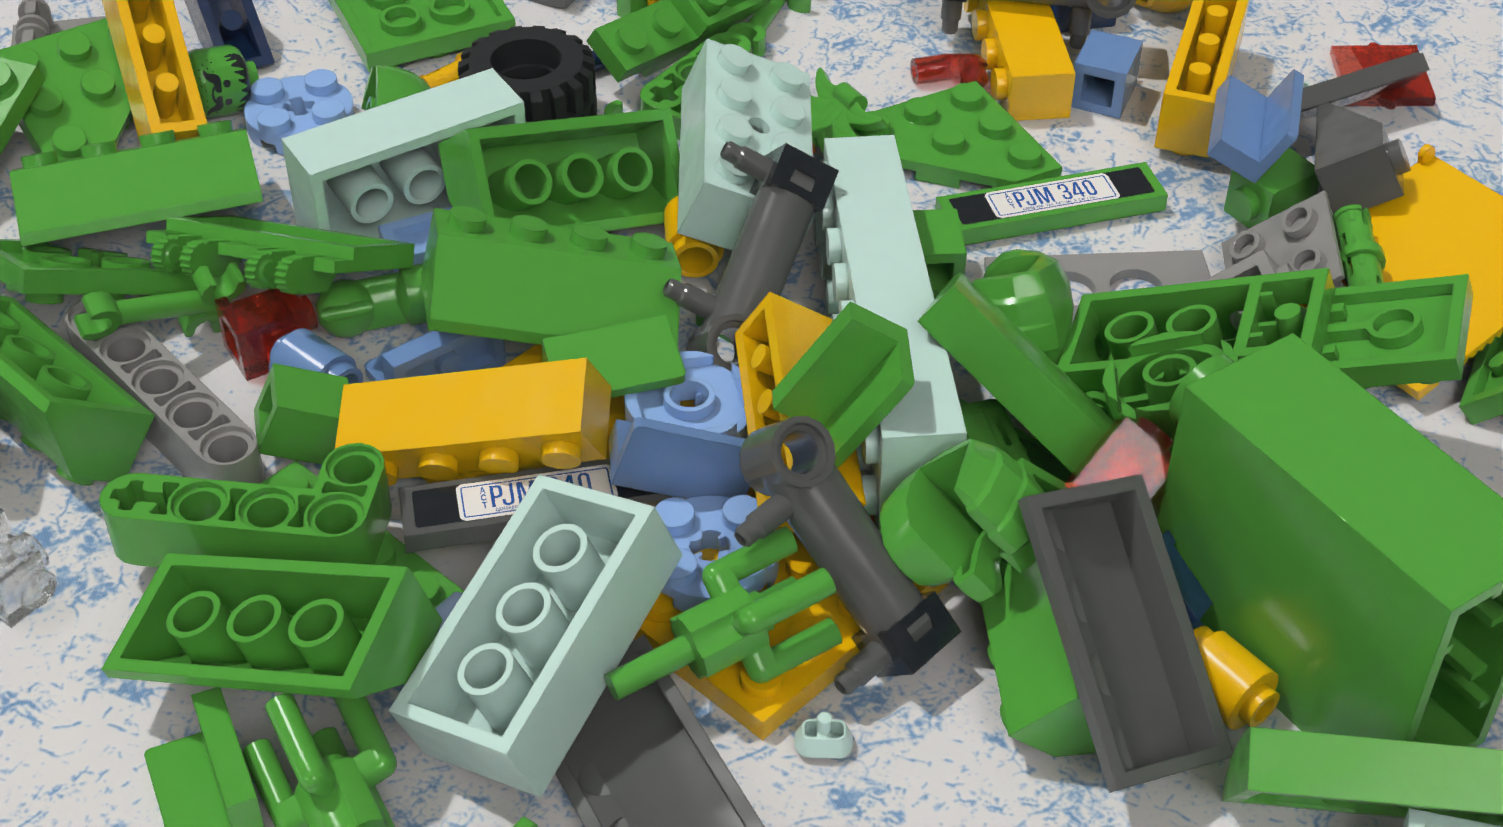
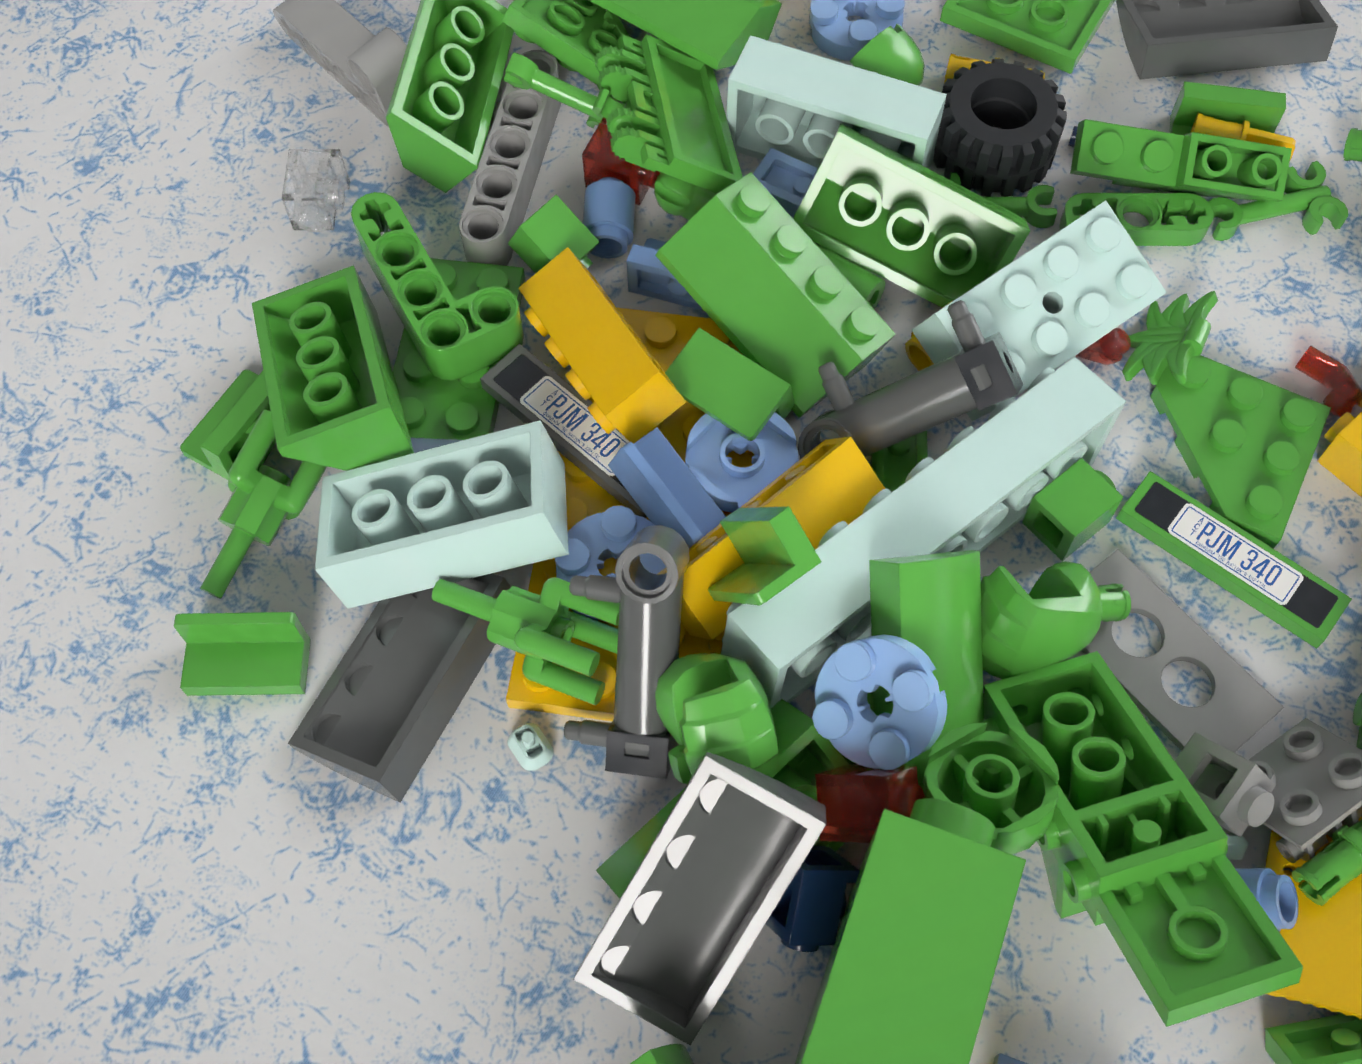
camera: 55 degrees right, 20 degrees up
(1084, 411) = (846, 716): none -> light blue plate
(1239, 679) = (777, 995): yellow brick -> none

